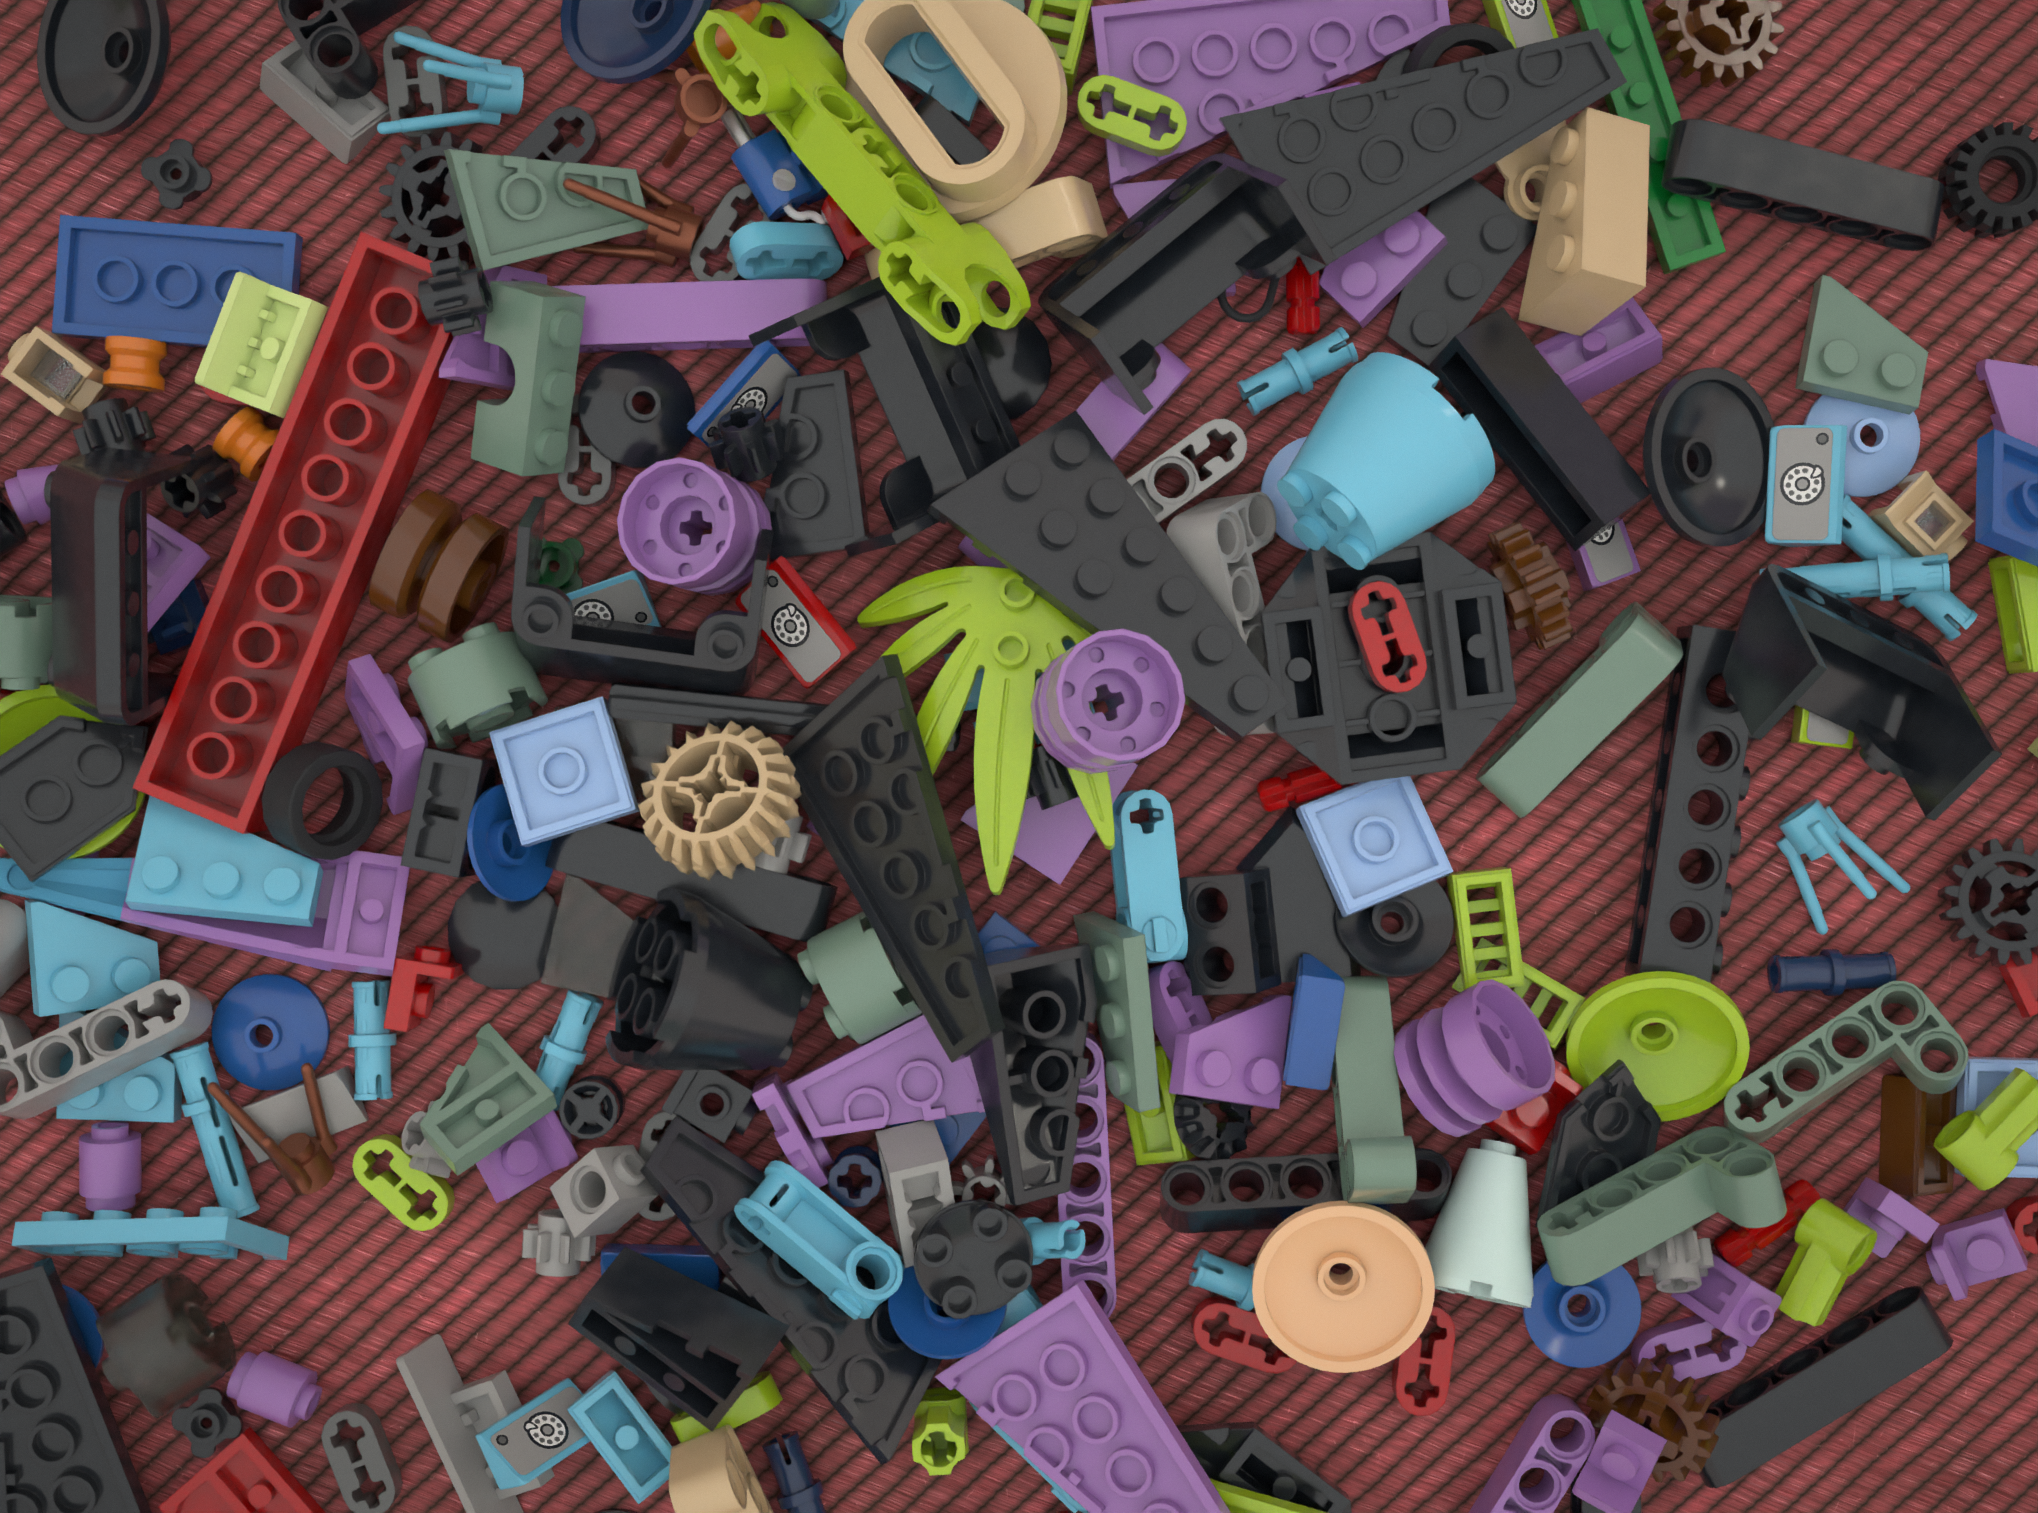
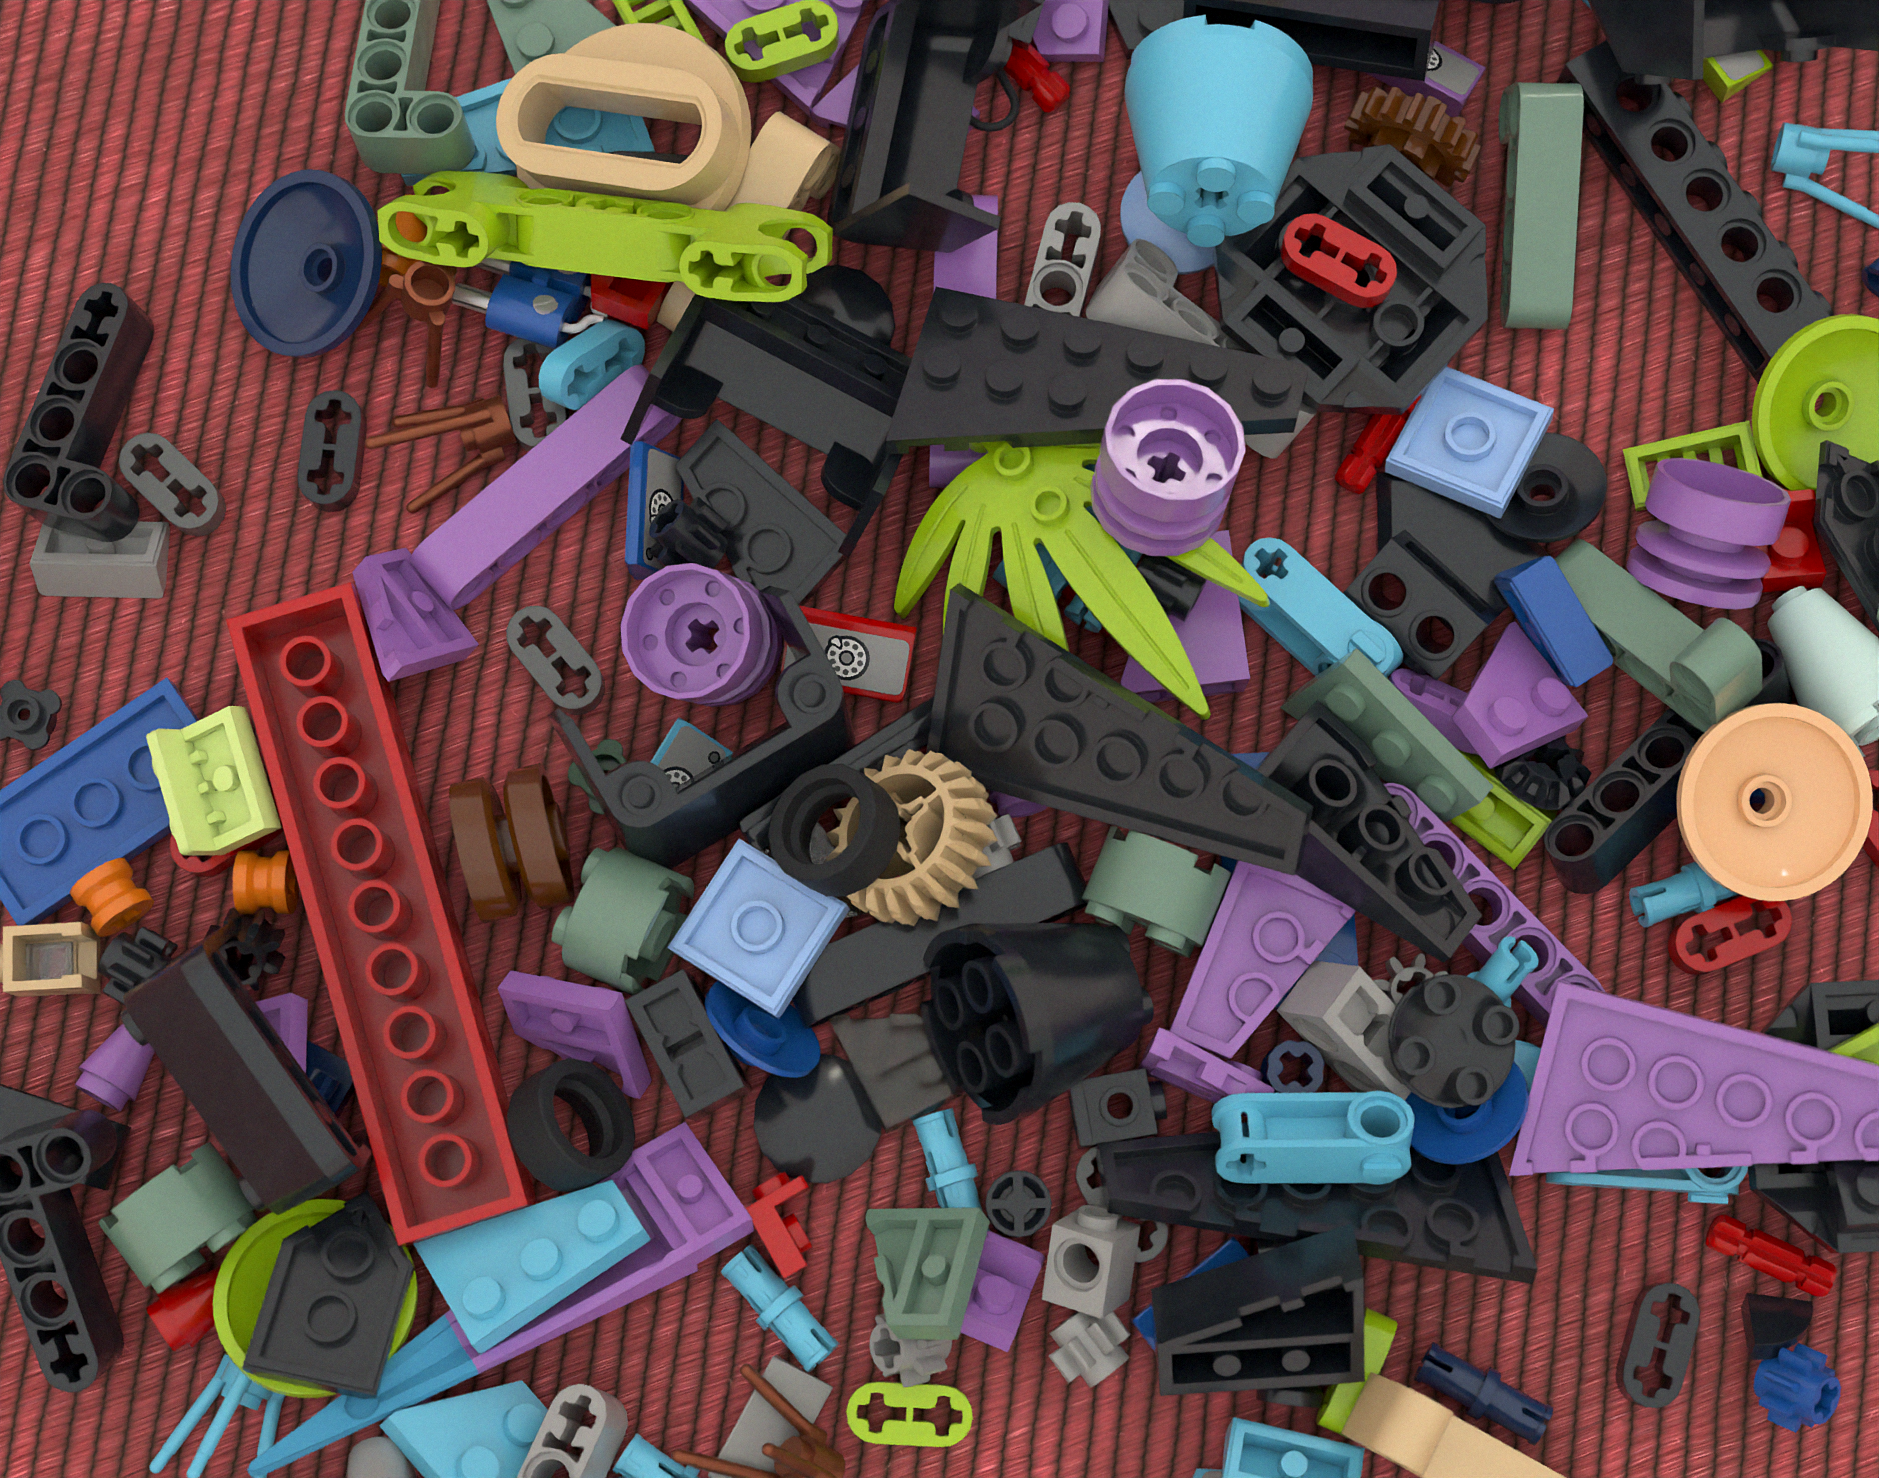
camera: 40 degrees left, 10 degrees down
(297, 1025) = (718, 1390): blue dish -> none
(422, 191) = (264, 525): black gear -> none
(455, 296) = (351, 598): black gear -> none
(489, 84) = (235, 432): medium azure plant -> none
(522, 211) = (352, 494): sand green wing -> none
(542, 336) = (448, 580): sand green arch -> none
(617, 428) = (565, 612): black dish -> none
(640, 725) = (801, 808): none -> black tyre
(940, 1430) = (1556, 1224): lime piece -> none
(1297, 371) = (1081, 133): medium azure pin -> none
(1504, 902) = (1616, 403): lime slope -> none

